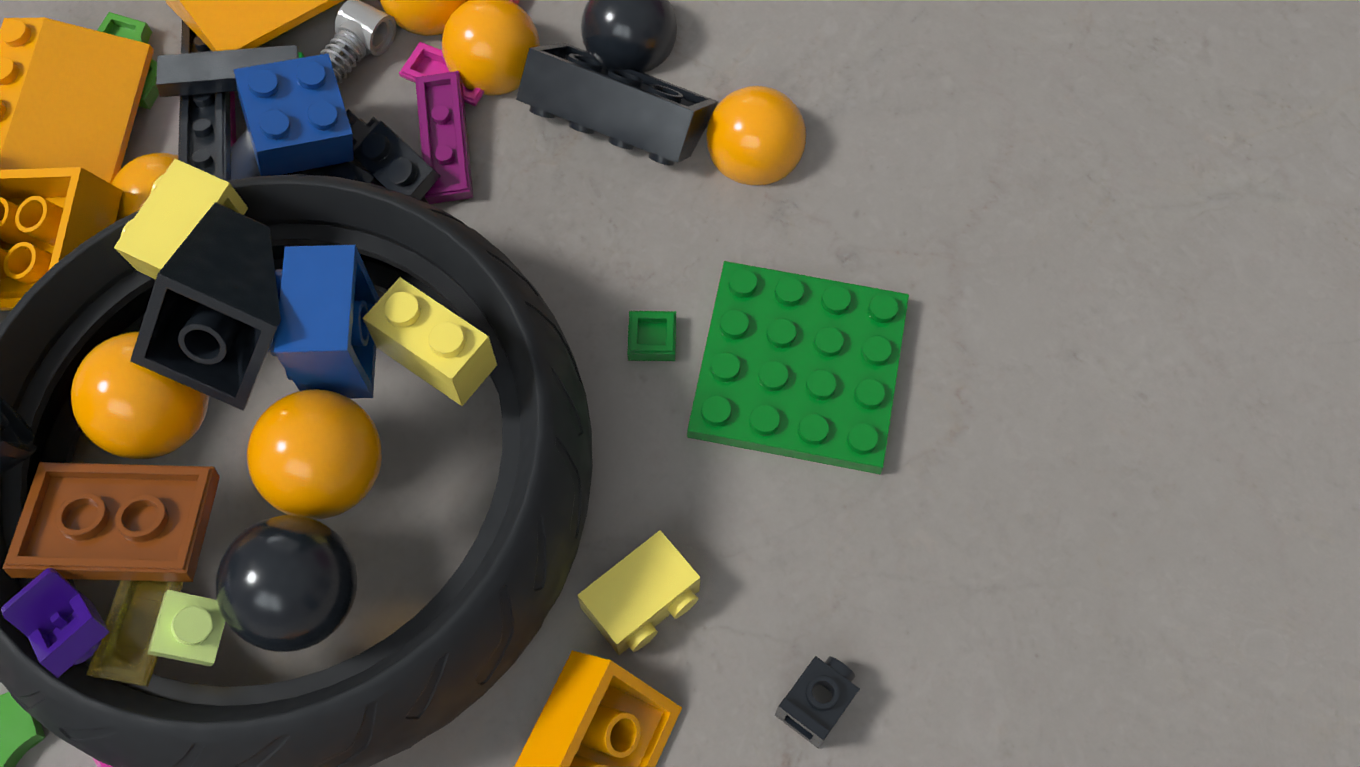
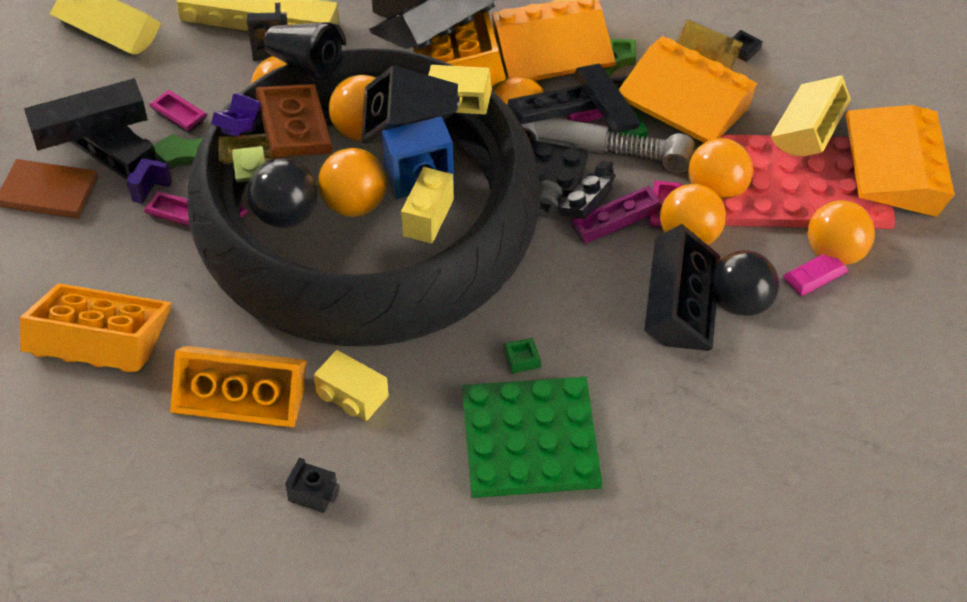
camera: 75 degrees right, 15 degrees down
(295, 115) = (584, 133): blue brick -> none
(756, 135) = (690, 372): light orange piece -> none

